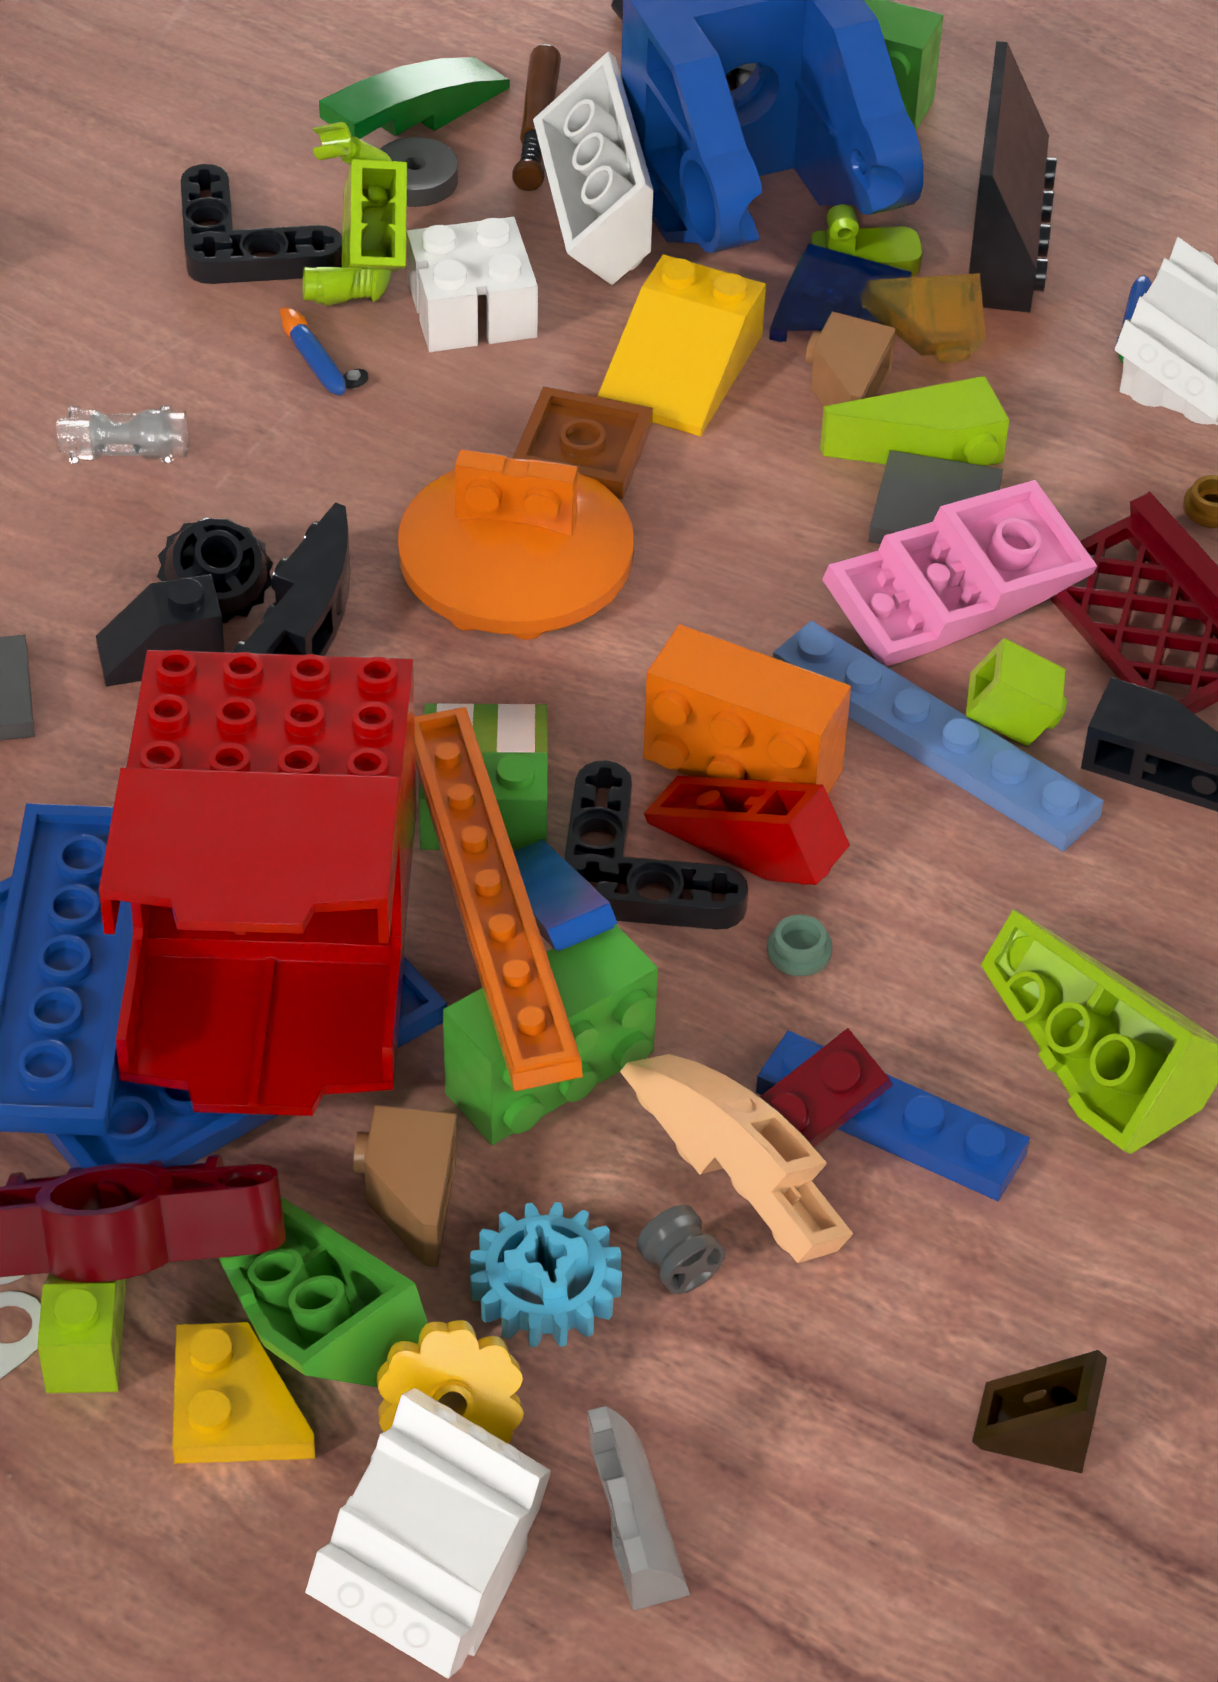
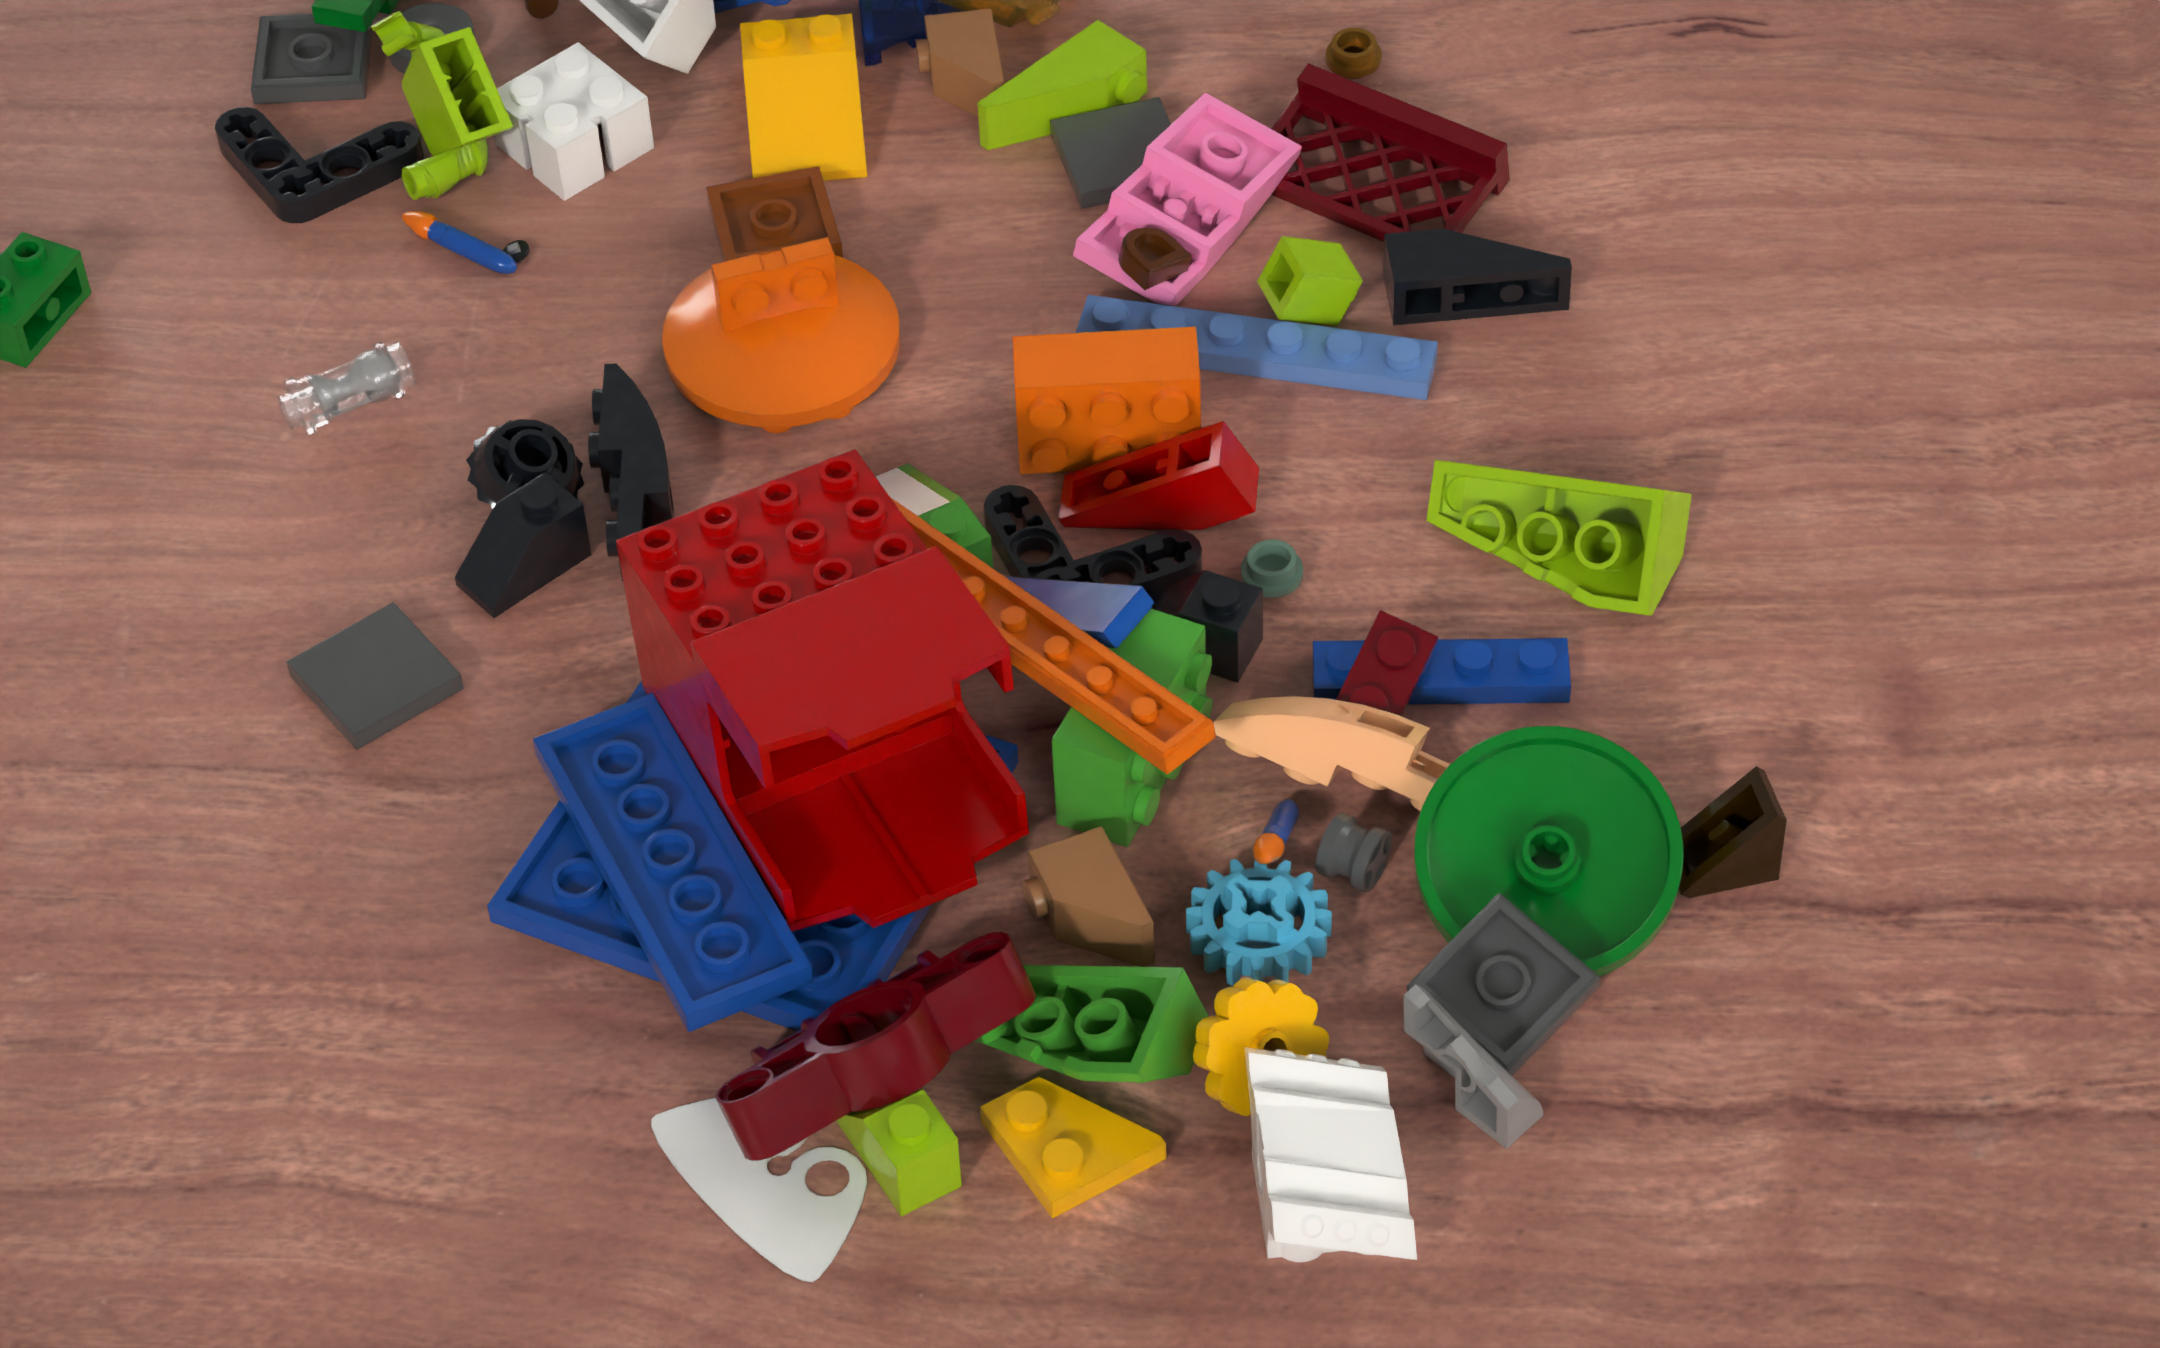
camera: 25 degrees left, 0 degrees up
(285, 152) = (308, 61): none -> dark grey tile
(595, 1205) = (1271, 844): none -> piece
(701, 971) = (1227, 610): none -> black slope
(727, 1448) = (1507, 982): none -> dark grey tile
(852, 1341) = (1560, 831): none -> green dish
(886, 609) = (1152, 257): none -> reddish brown tile

